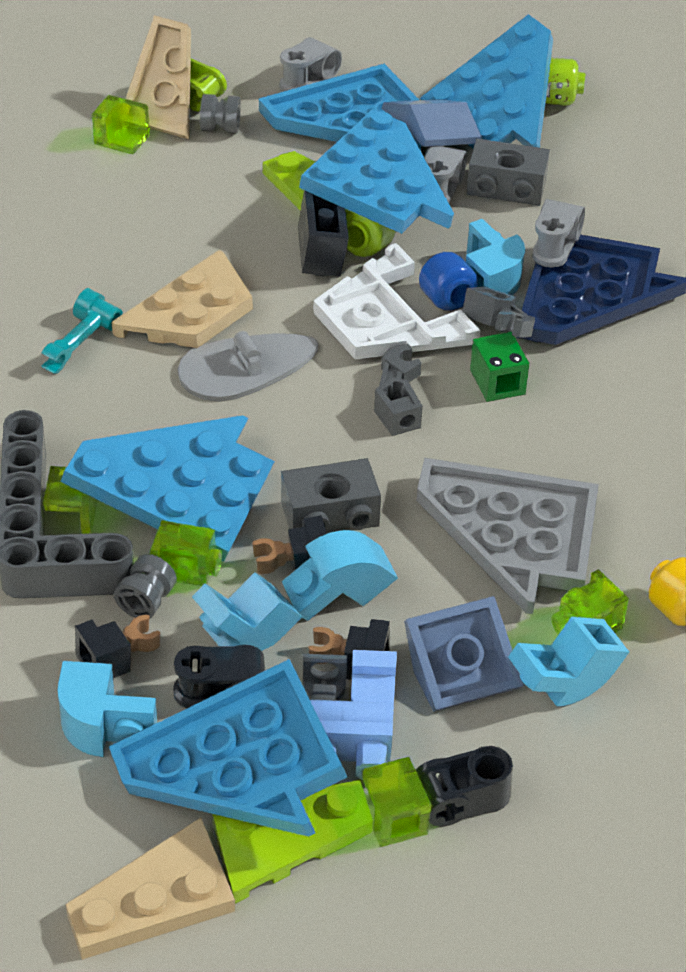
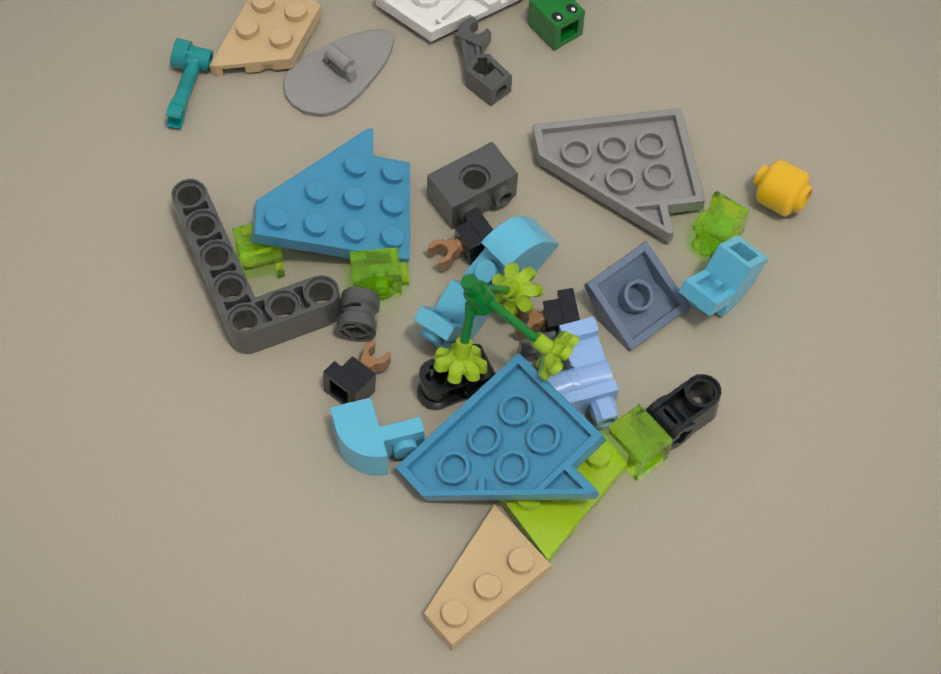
camera: 20 degrees left, 15 degrees up
(316, 603) = (481, 299): none -> lime plant

